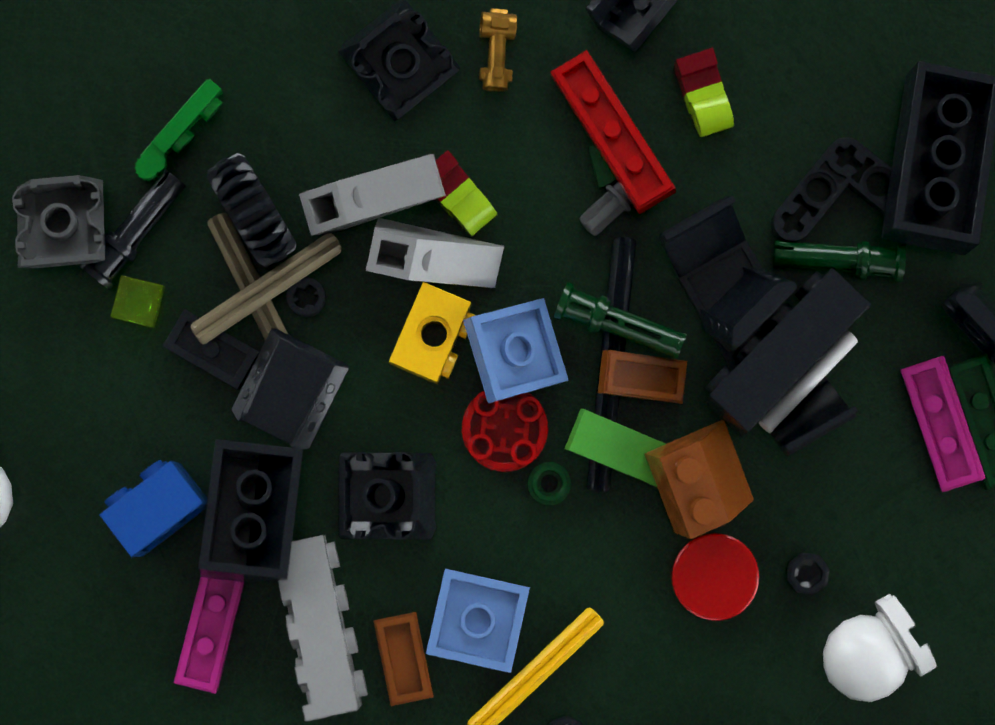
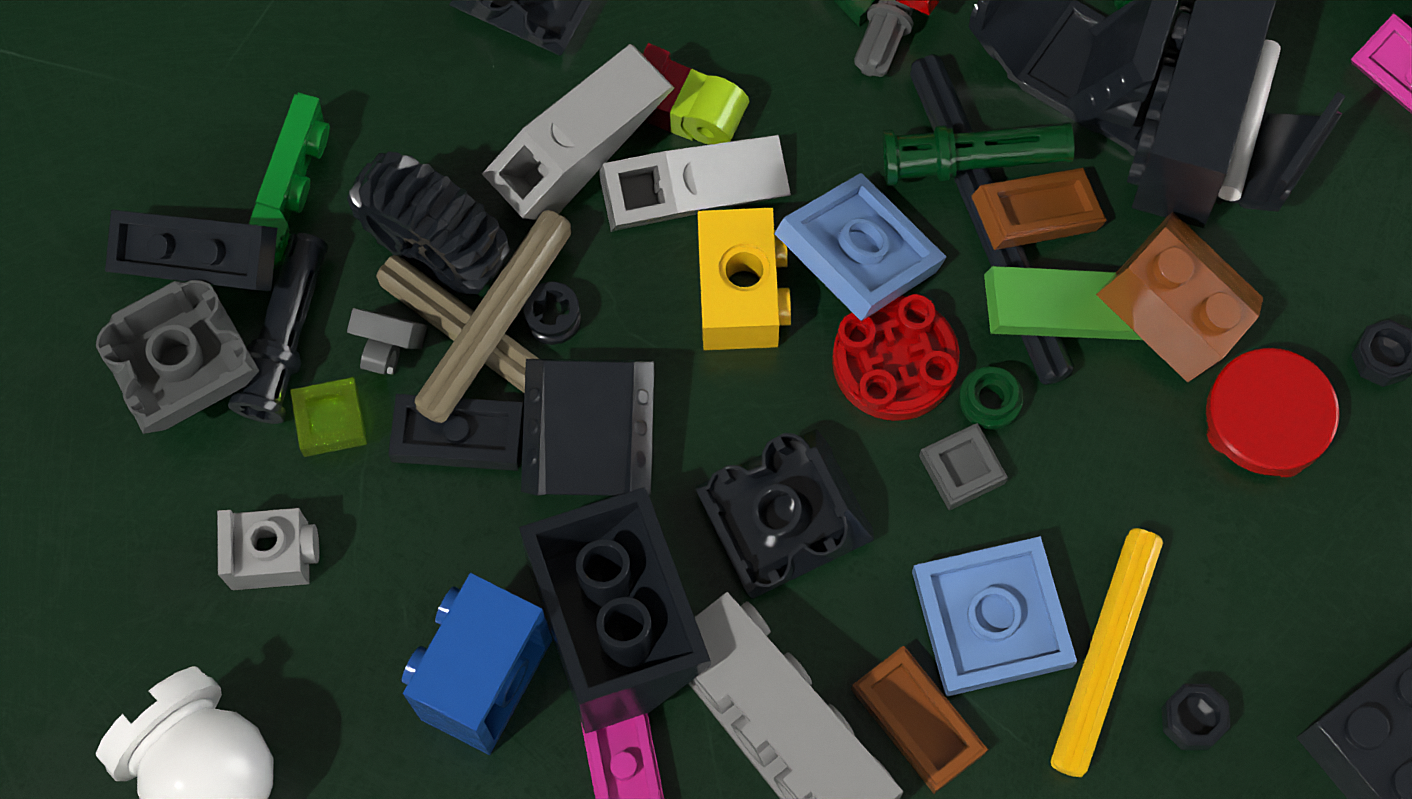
camera: 20 degrees left, 15 degrees down
(50, 356) = (283, 565): none -> light grey brick
(97, 154) = (191, 250): none -> black plate
(196, 265) = (385, 337): none -> dark grey tile
(510, 517) = (963, 466): none -> dark grey tile

